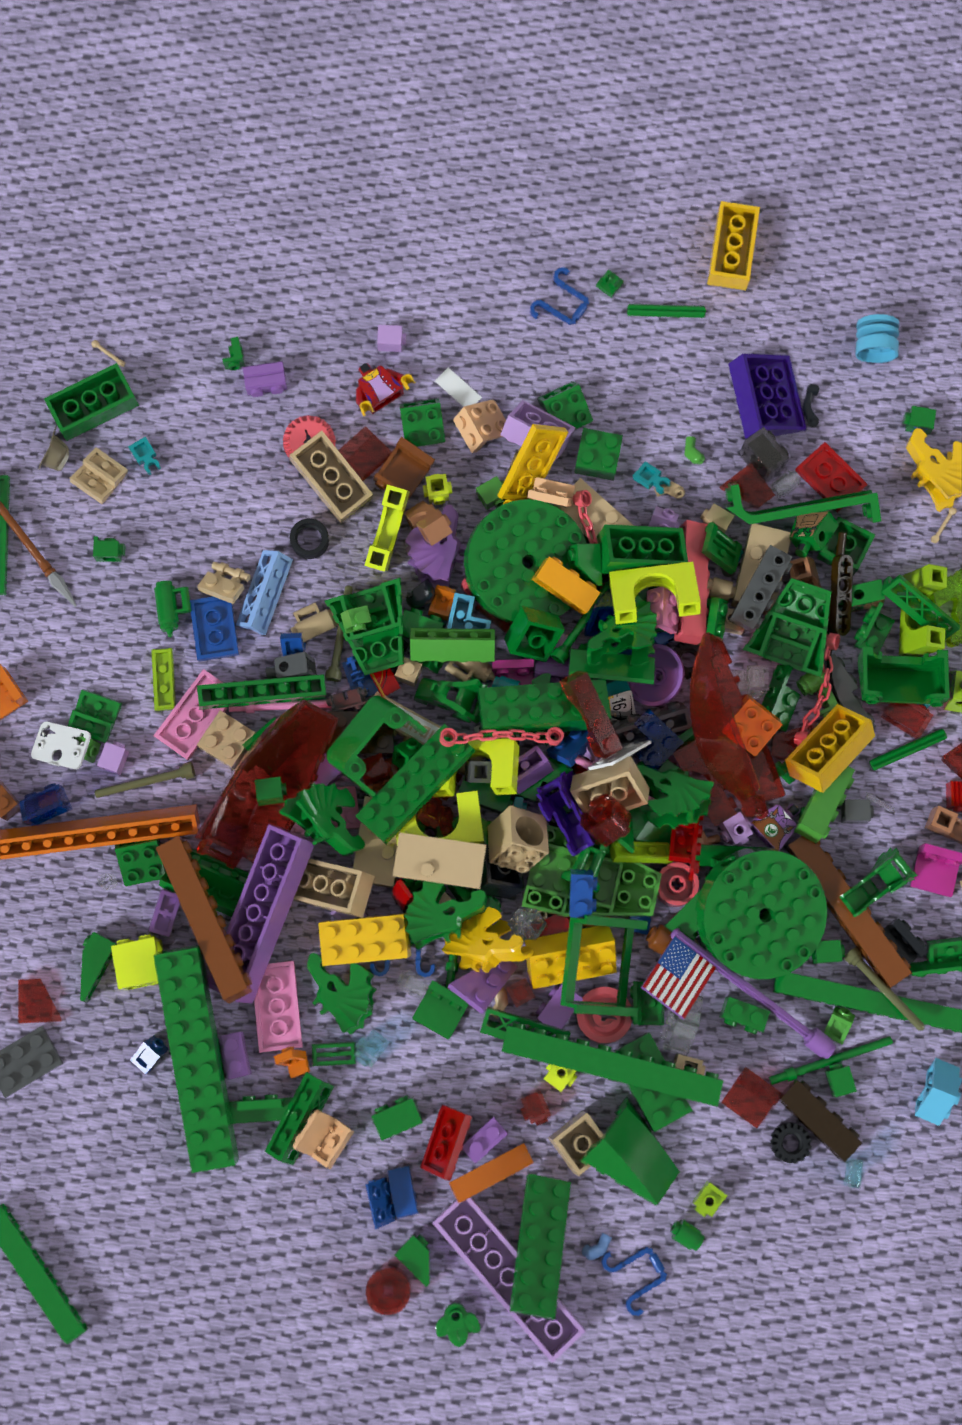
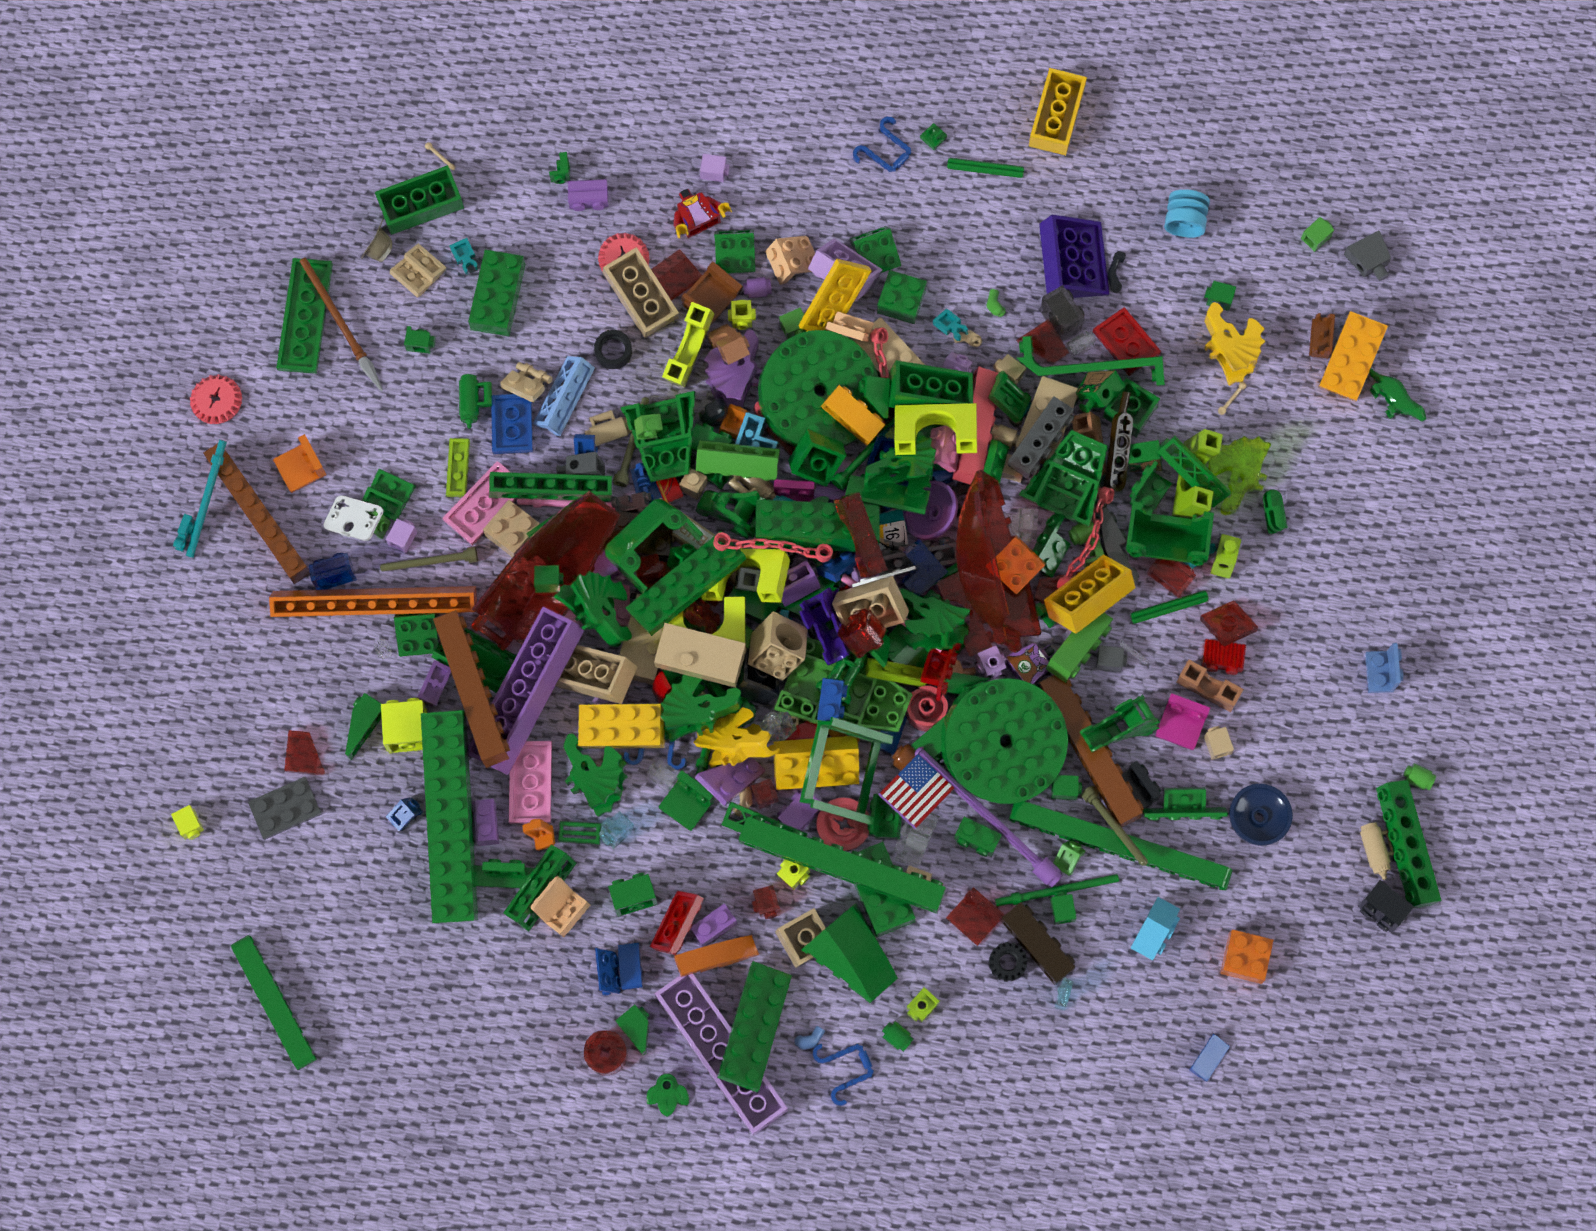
camera: 10 degrees right, 5 degrees down
(183, 491) = (497, 293): none -> green brick
(450, 459) = (757, 287): none -> medium lavender brick
(457, 388) = (773, 221): white sticker -> none

